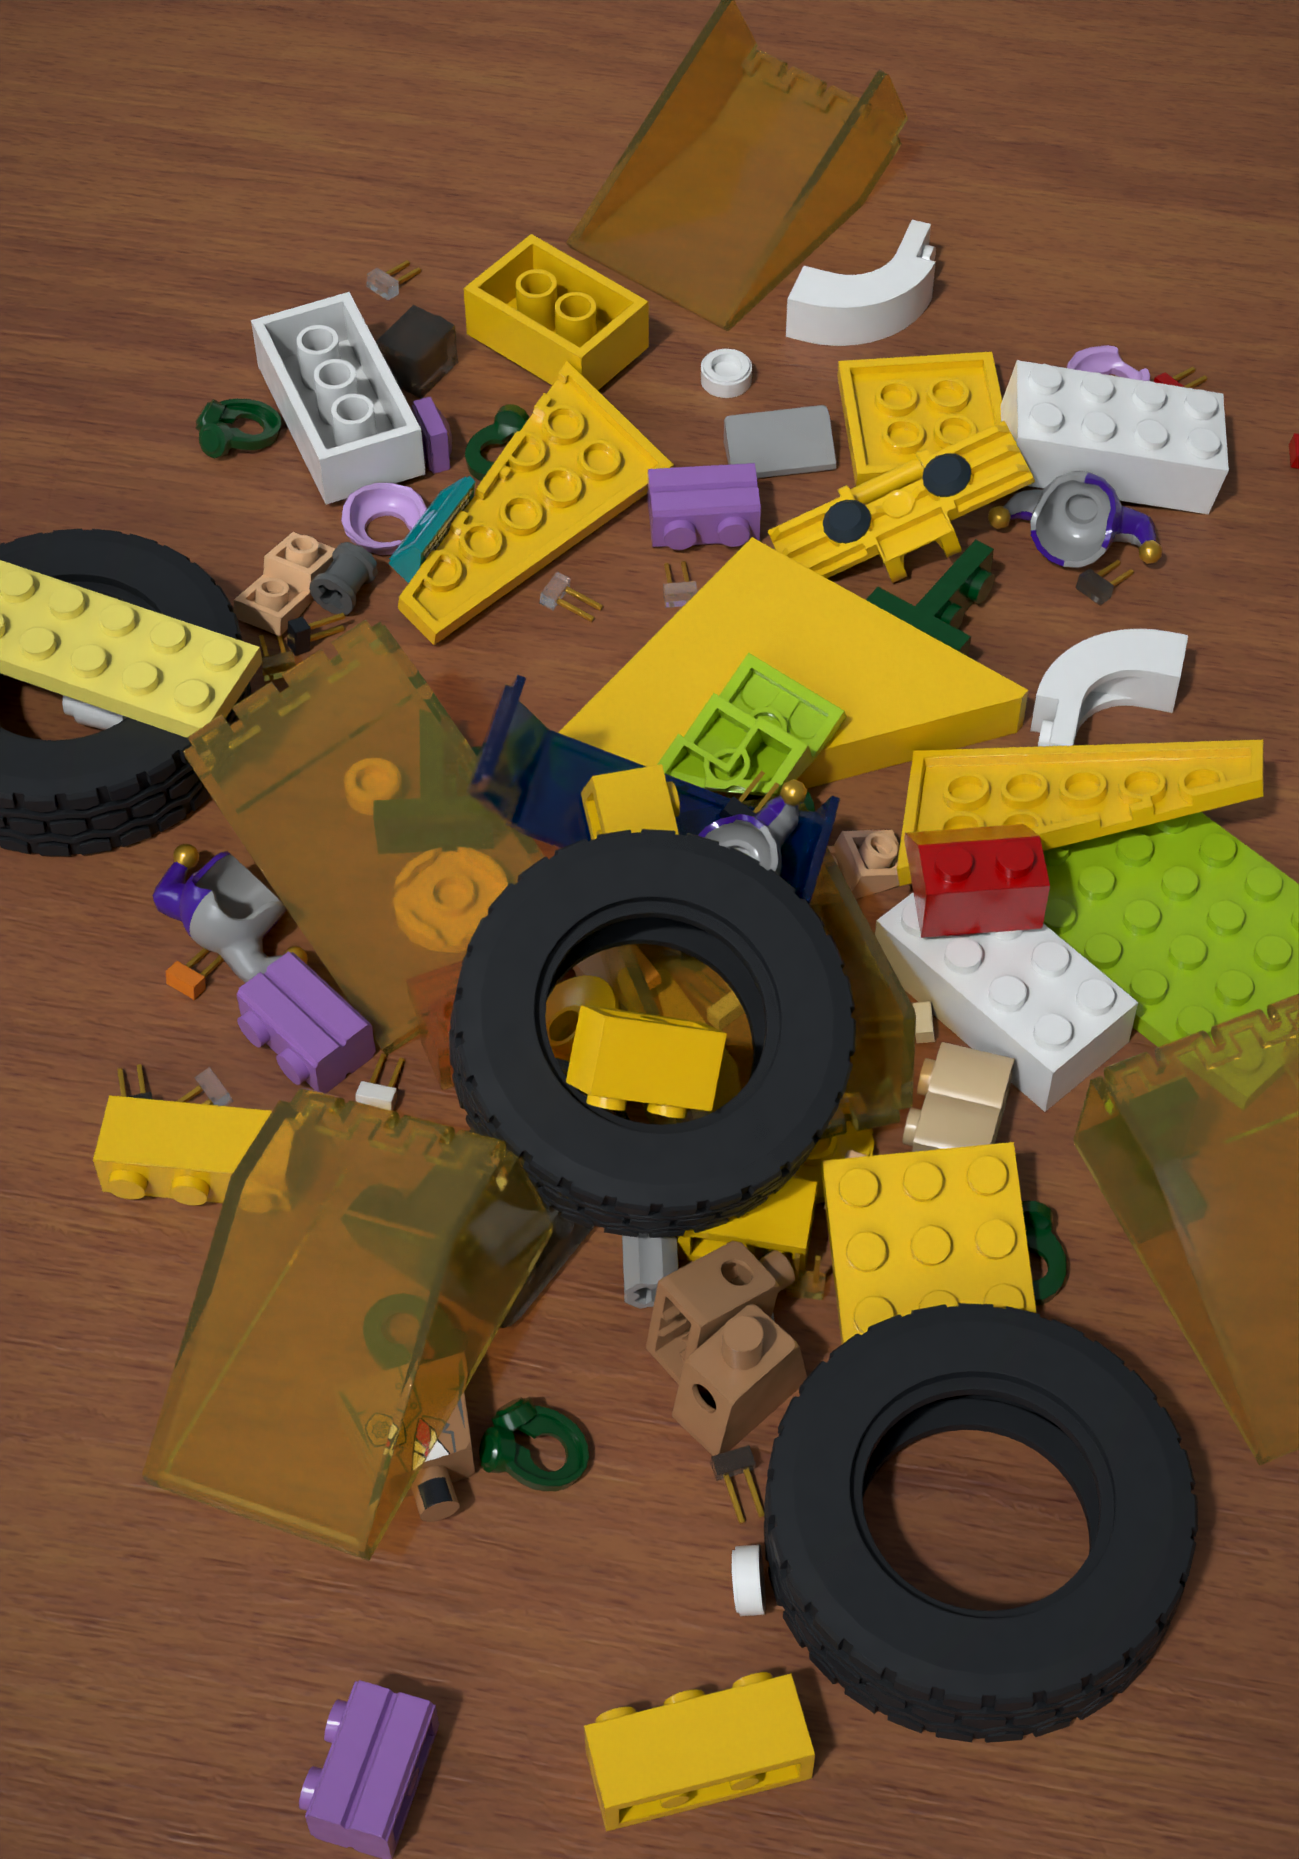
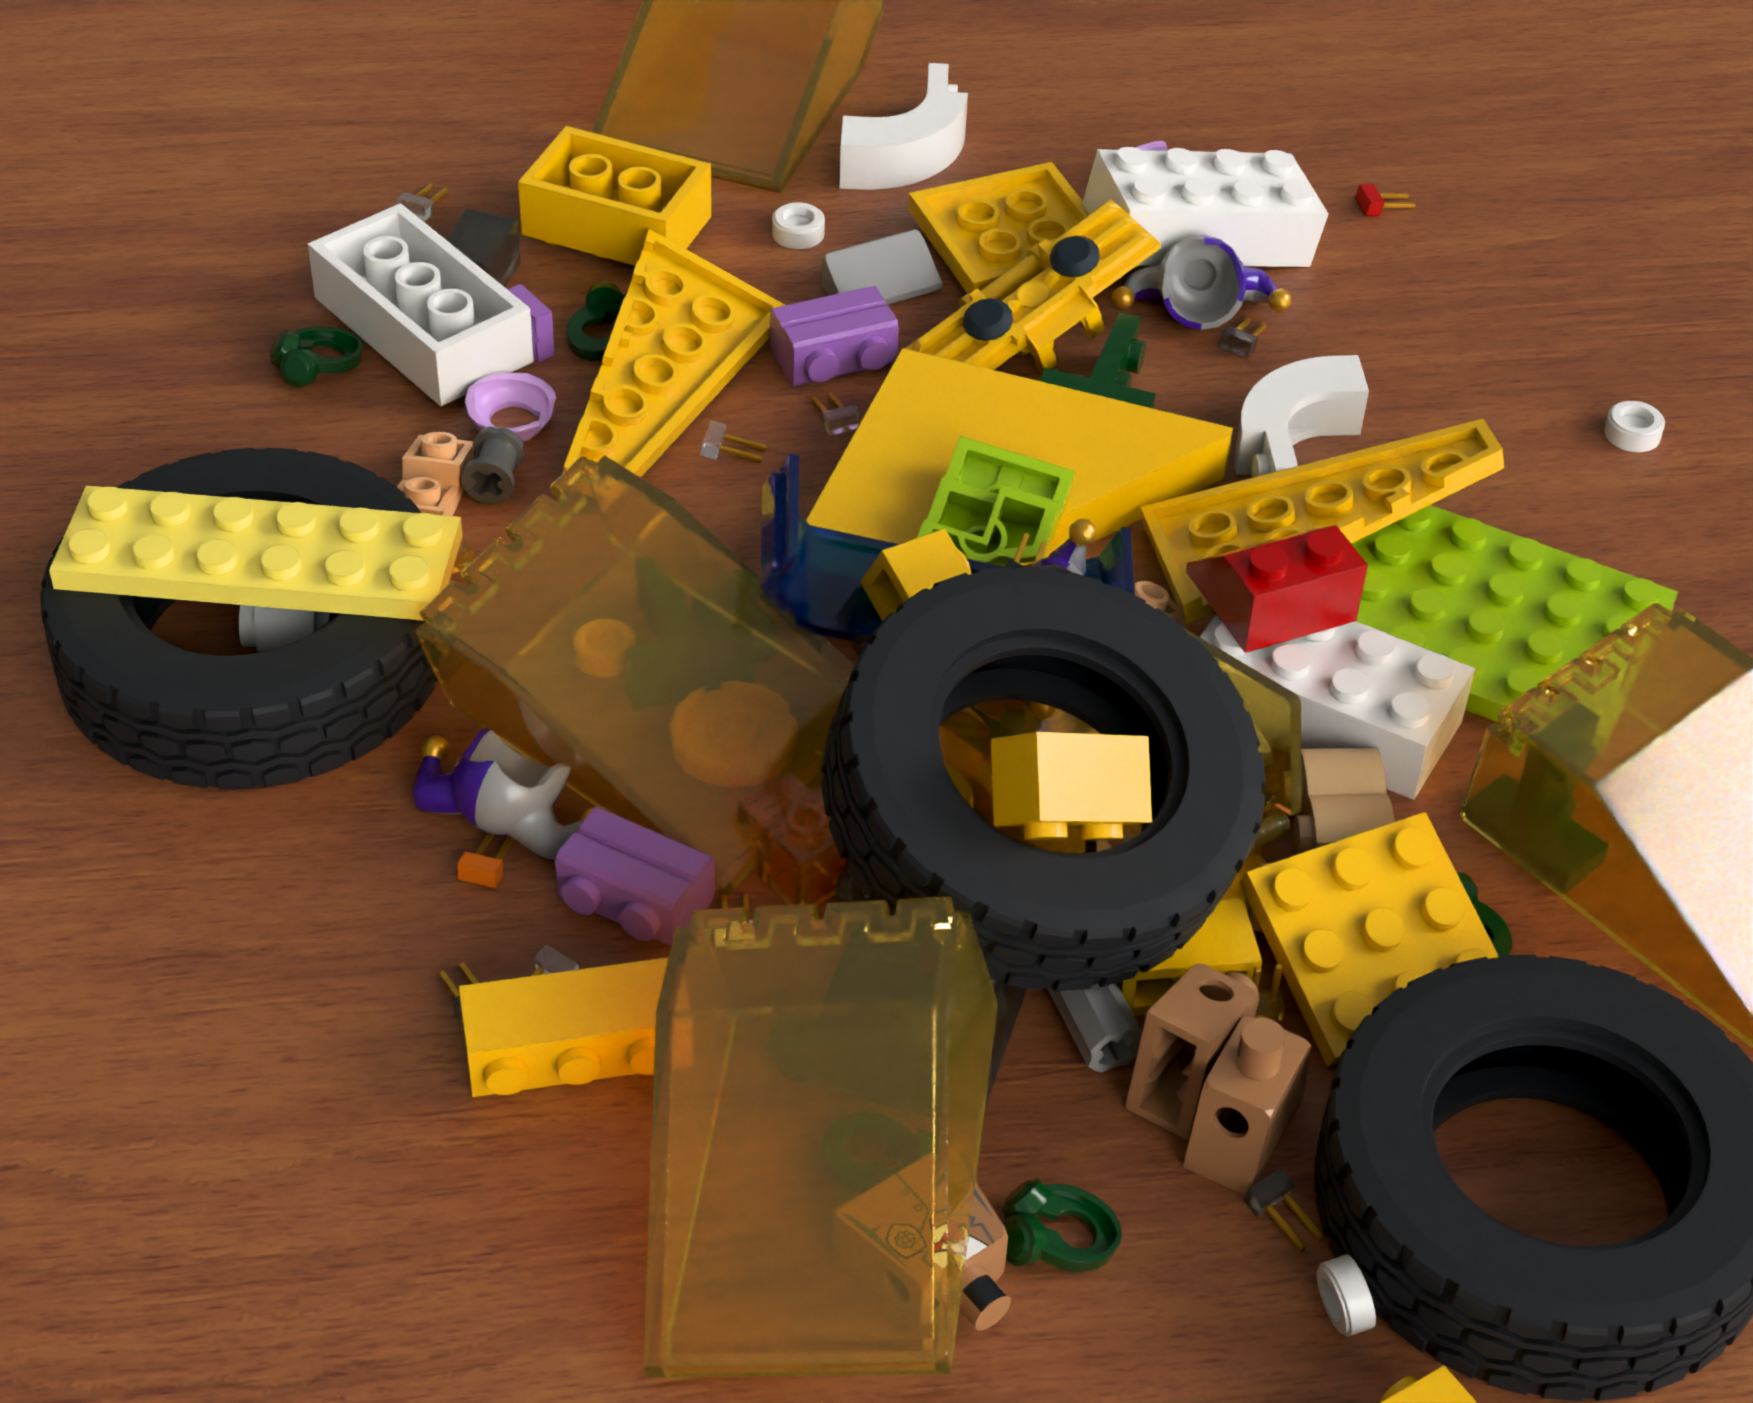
camera: 20 degrees left, 10 degrees down
(300, 632) = (471, 520): black piece -> none
(431, 527) = (568, 403): teal slope -> none

